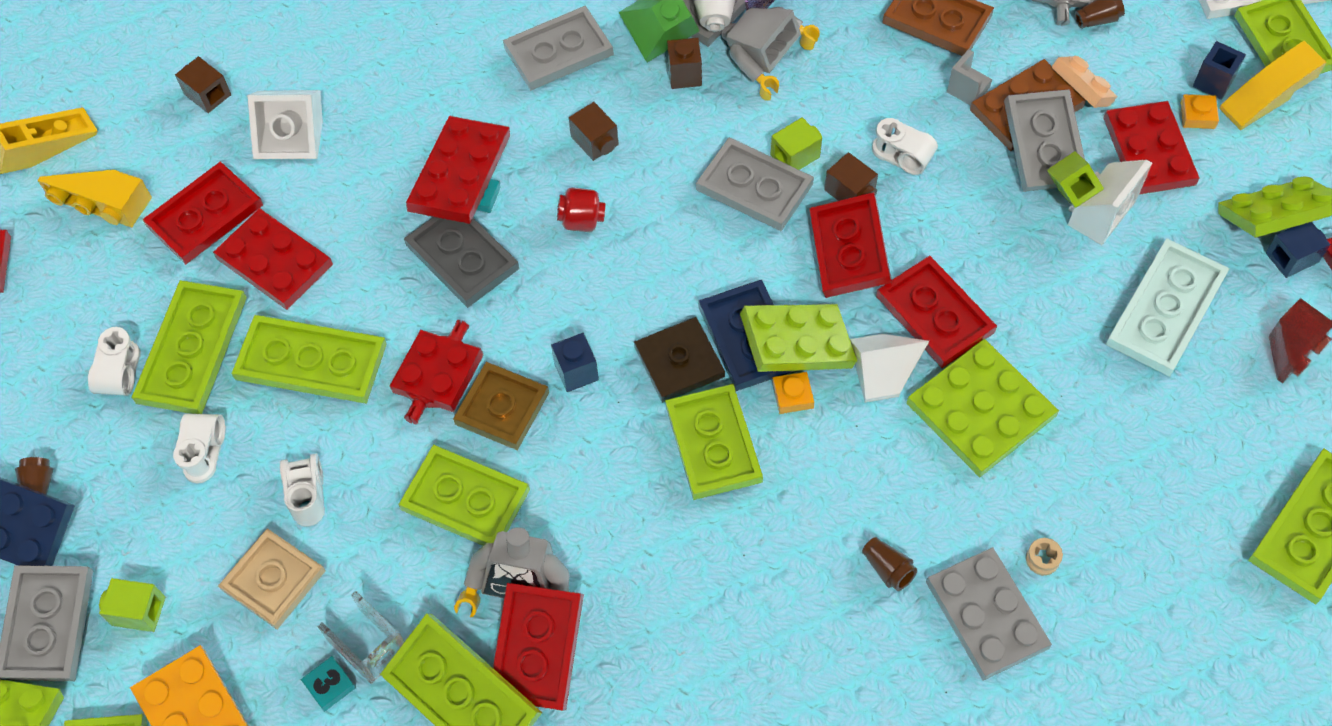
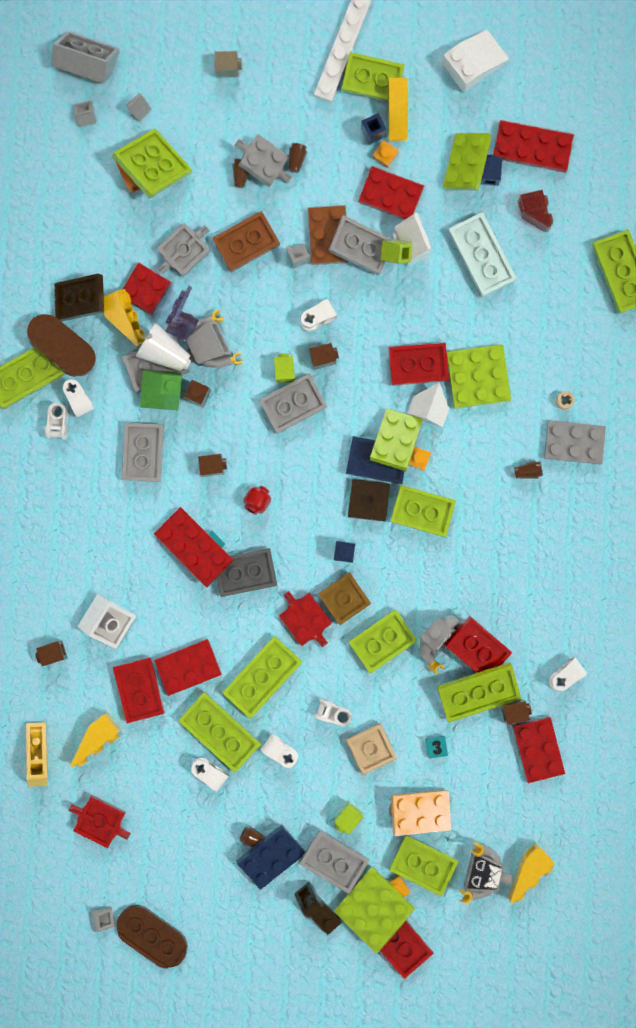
camera: 55 degrees left, 25 degrees up
(369, 667) = (435, 731): clear piece -> none
(850, 245) = (359, 381): red plate -> none
(1090, 87) = (334, 198): light nougat plate -> none

